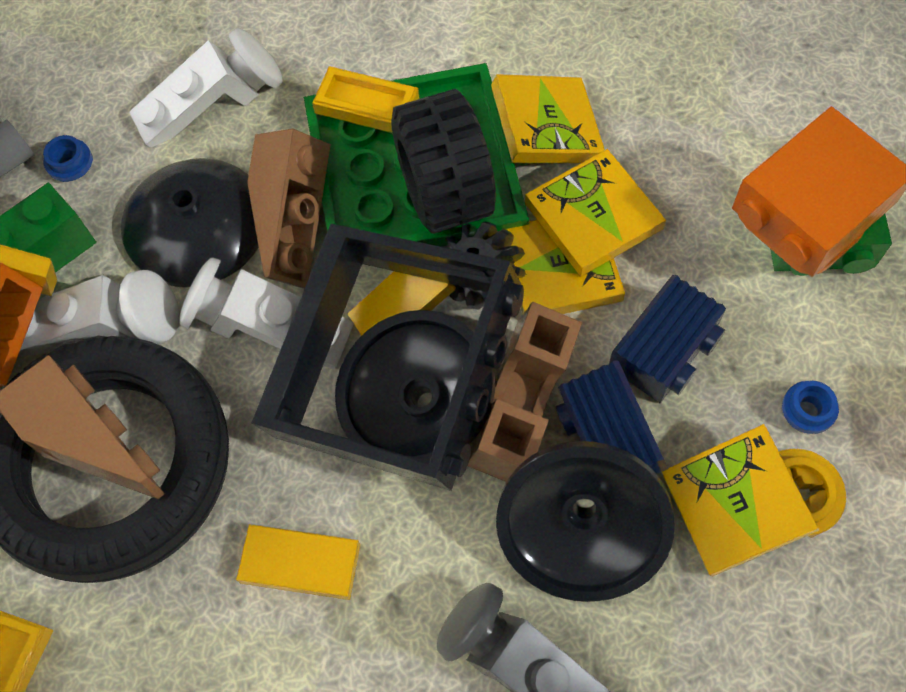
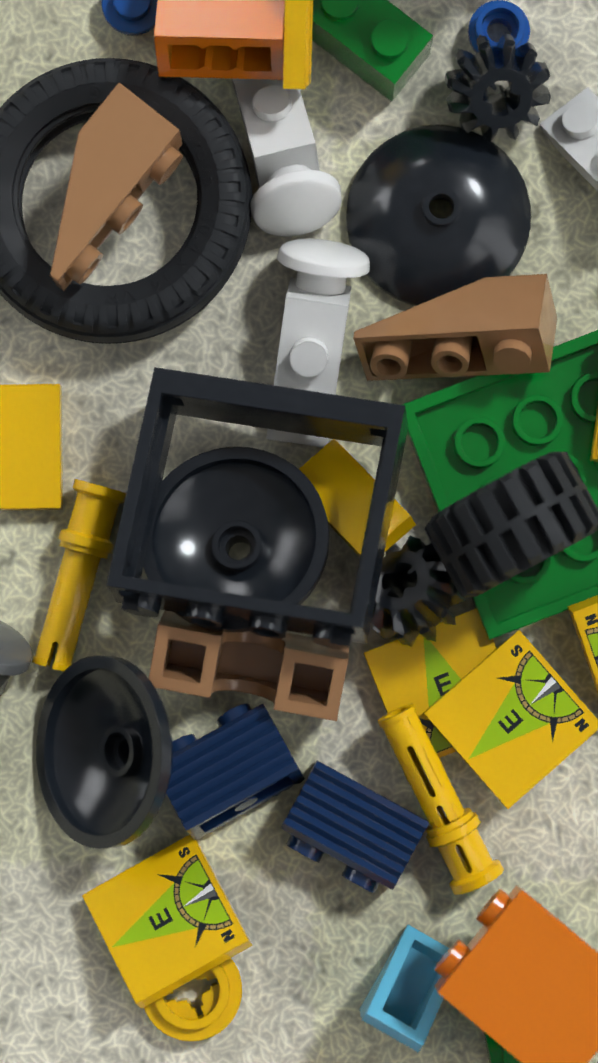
camera: 75 degrees right, 20 degrees up
(105, 154) = (511, 104): none -> black gear
(395, 524) = (84, 544): none -> yellow pin
(689, 262) = (457, 830): none -> yellow pin
(808, 316) = (404, 994): none -> medium azure slope
(820, 396) = (298, 1019): blue plate -> none

